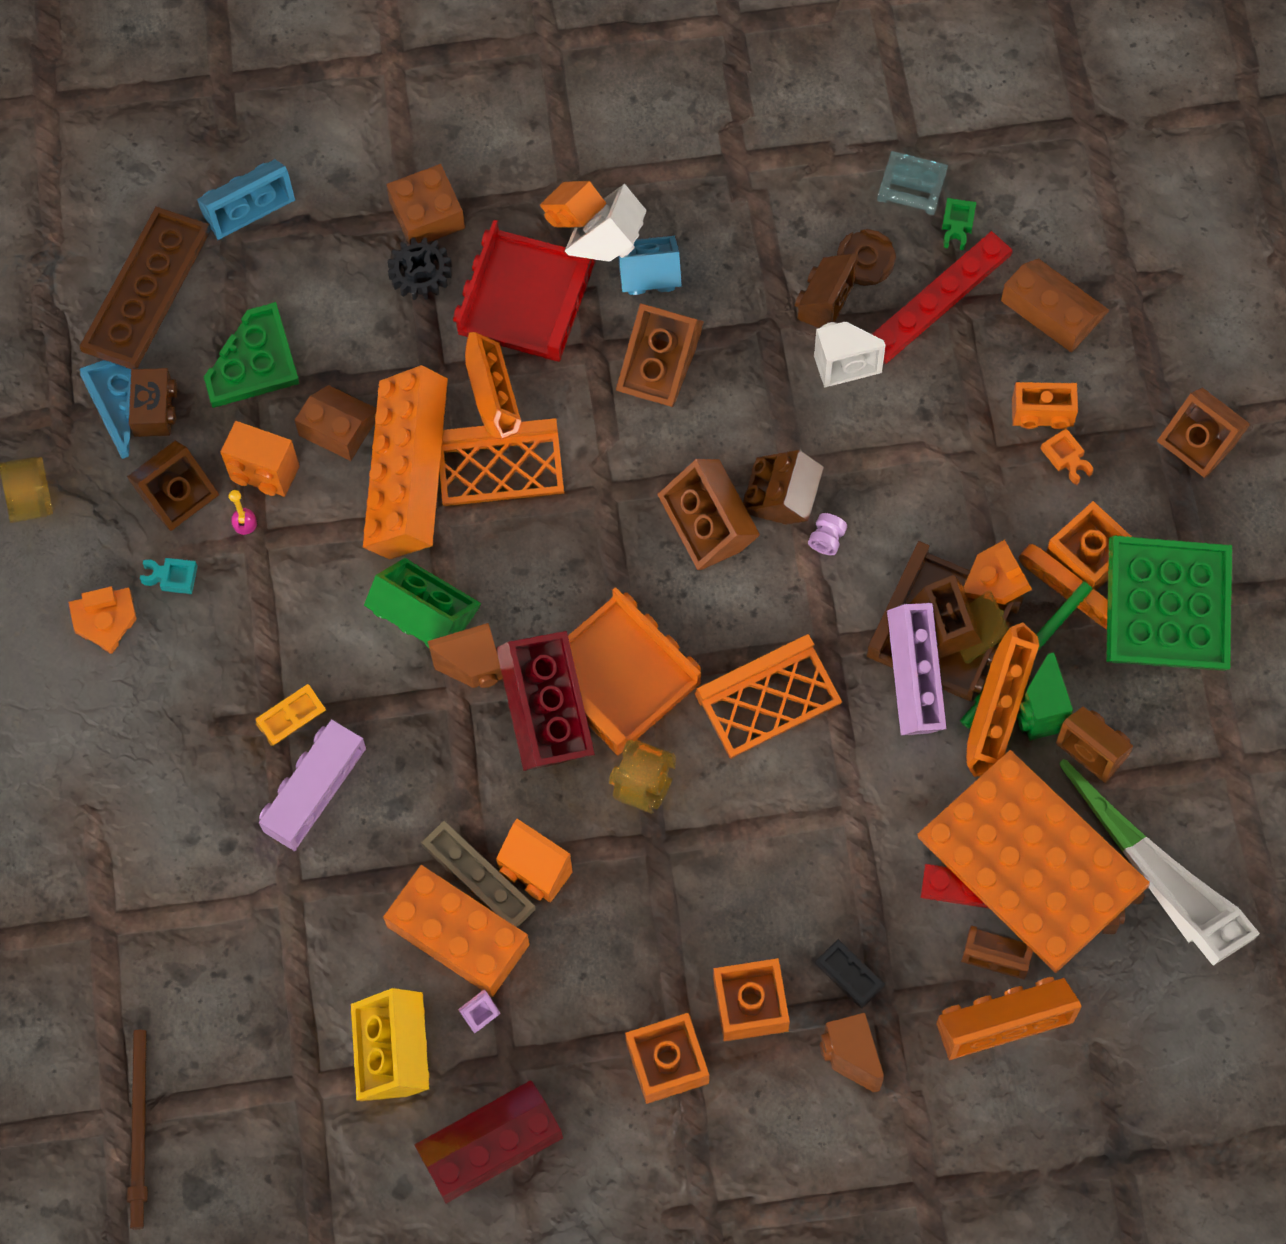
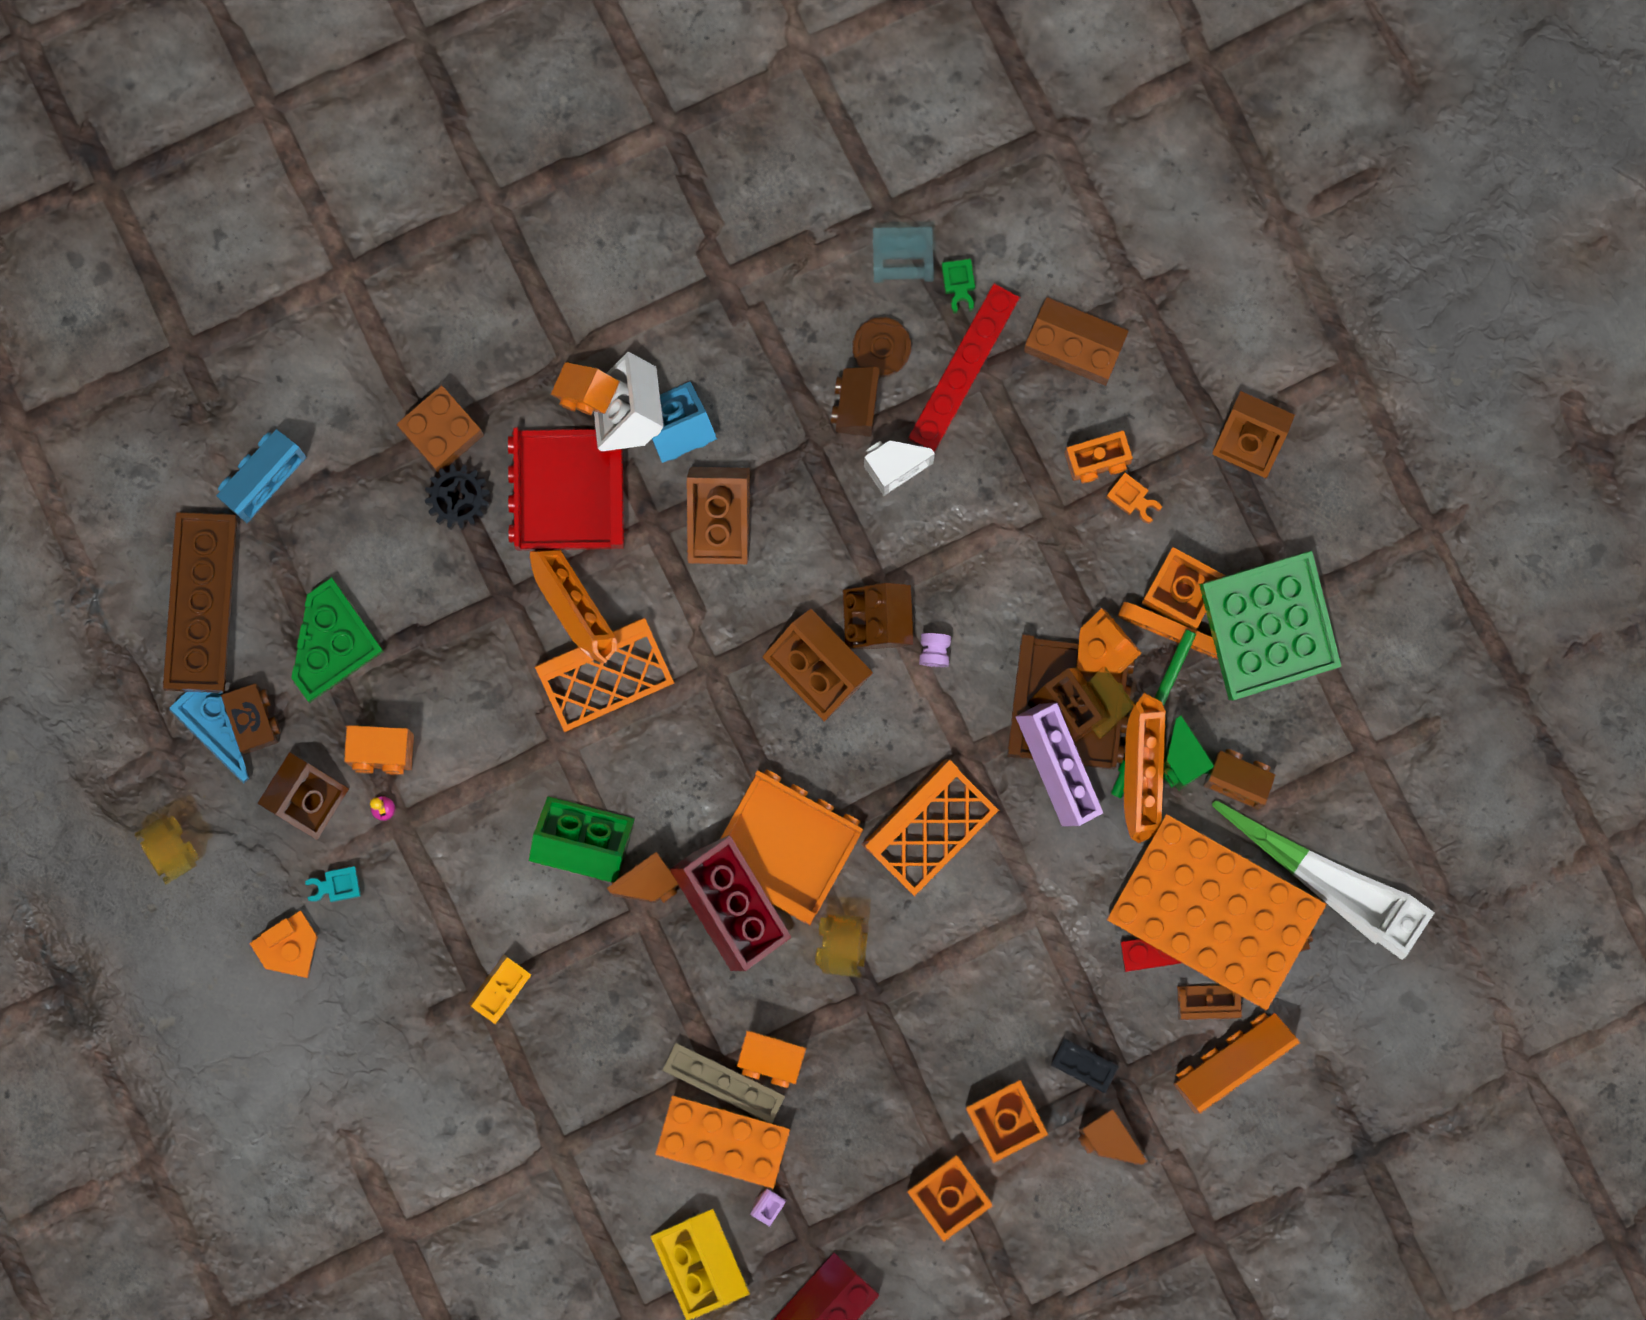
camera: 20 degrees left, 15 degrees up
(312, 784) = (543, 1047): lavender brick -> none
(335, 421) = (435, 679): dark orange slope -> none
(405, 463) = (518, 708): orange brick -> none

